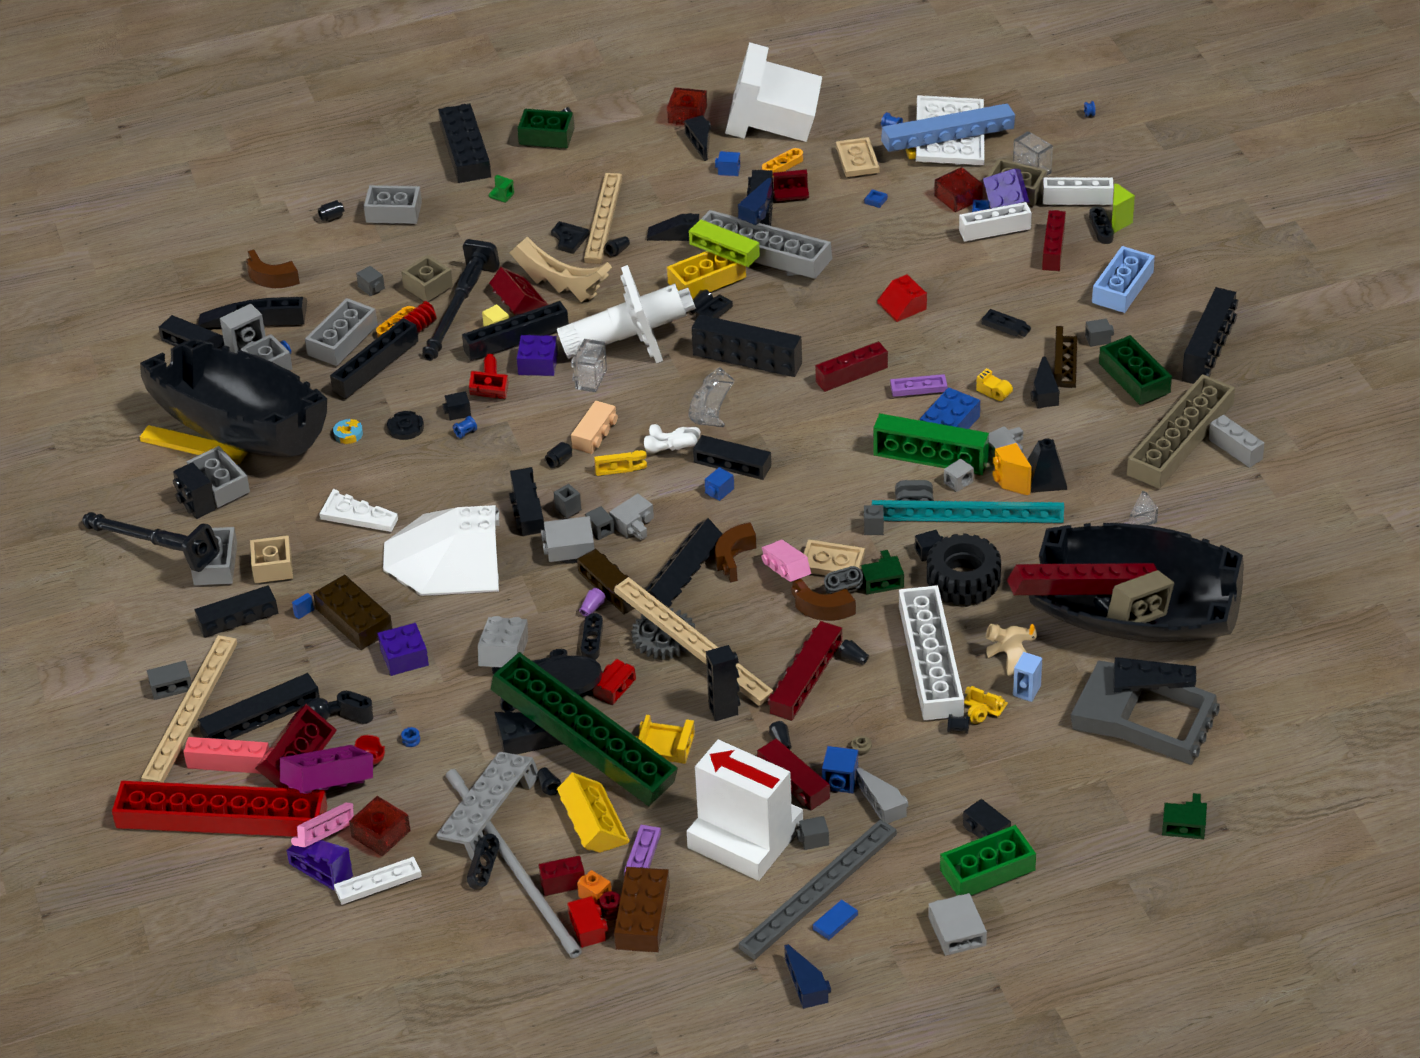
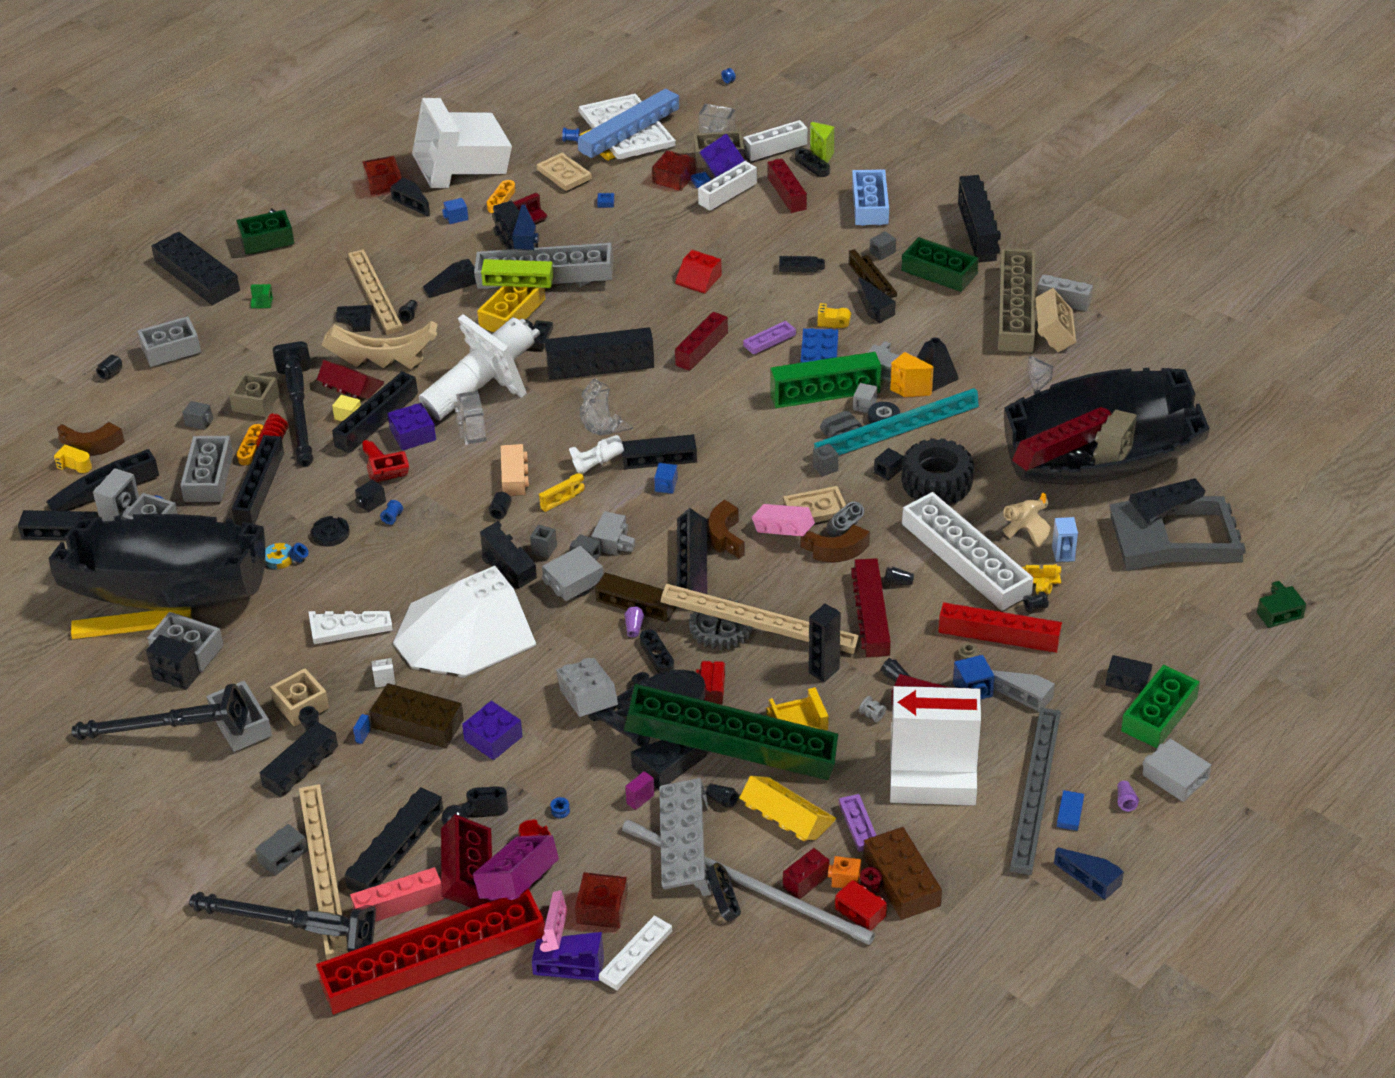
camera: 30 degrees left, 0 degrees up
(173, 764) = (357, 928): none -> black piece
(245, 283) = (73, 459): none -> yellow leg
(264, 577) = (308, 717): none -> black cone
(353, 563) = (383, 672): none -> white slope
(359, 436) = (298, 552): none -> blue bush
(481, 748) = (639, 790): none -> magenta piece
(813, 833) = (994, 742): dark grey brick -> none
(883, 575) = (873, 499): dark green hinge -> none
(892, 929) = (1126, 796): none -> medium lavender cone
(905, 734) = (1000, 627): none -> red brick
(965, 492) = (881, 411): none -> black bush
(1197, 464) = (1055, 320): none -> tan brick

